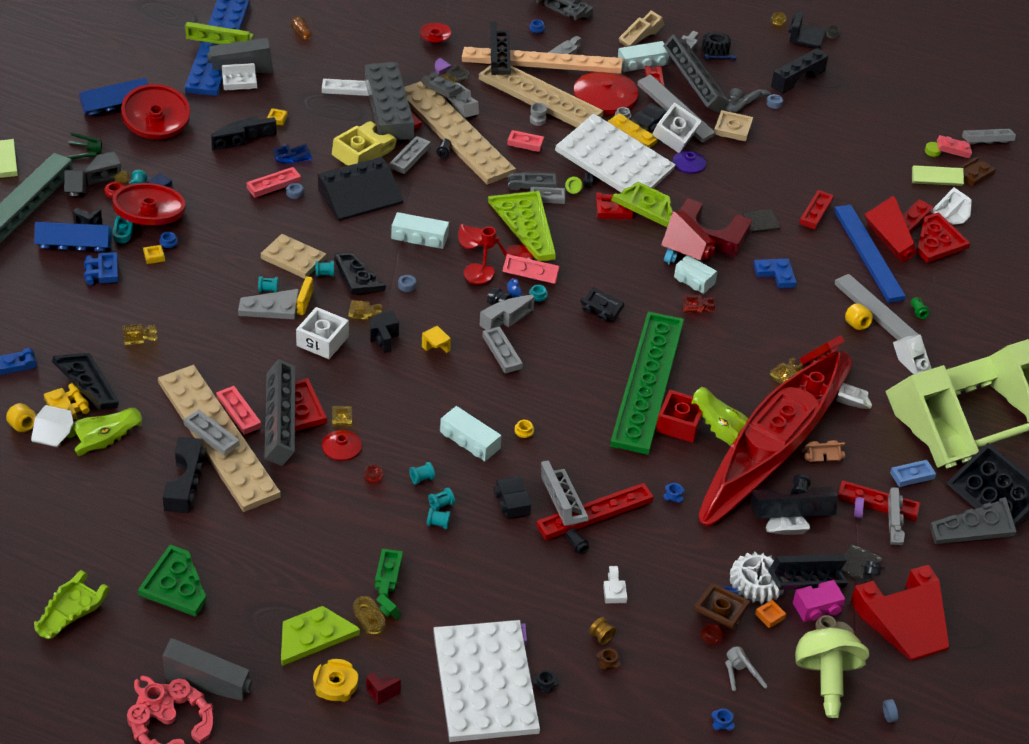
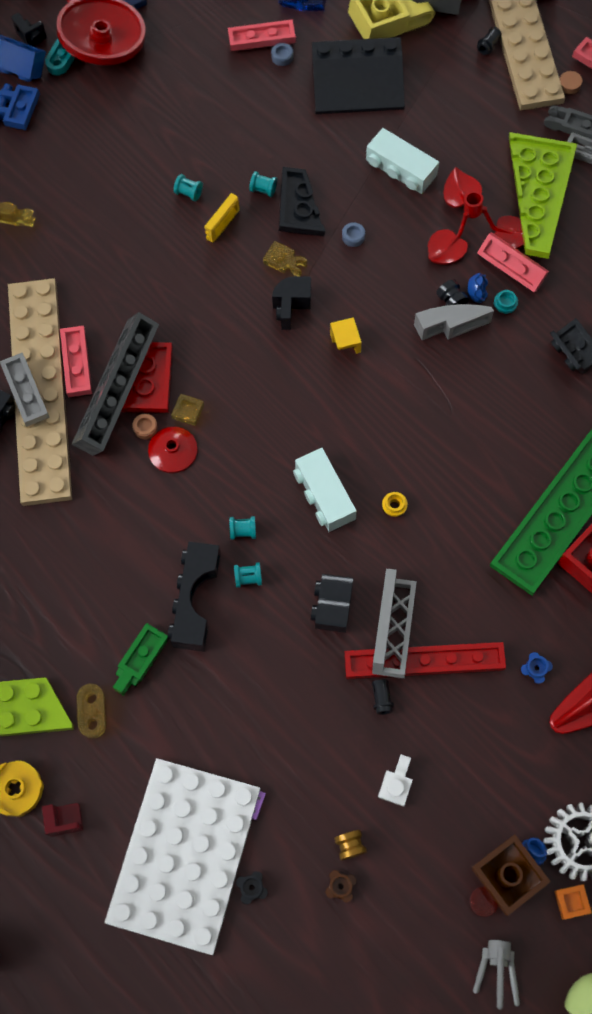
camera: 30 degrees right, 25 degrees up
(154, 254) = (82, 101): yellow tile -> none
(168, 240) = (105, 87): blue plate -> none
(270, 305) = (179, 217): light grey wing -> none
(293, 256) = (237, 152): tan plate -> none
(313, 436) = (145, 426): none -> nougat tile
(322, 333) = (215, 282): white brick -> none
(373, 474) = (187, 508): clear red plate -> none
(388, 608) = (116, 710): green plate -> none
(410, 155) = (442, 39): light grey plate -> none
(415, 541) = (200, 564): none -> black arch
(438, 518) = (231, 602): teal bush -> none
(502, 349) = (421, 375): light grey plate -> none
(515, 159) = (570, 82): none -> nougat tile

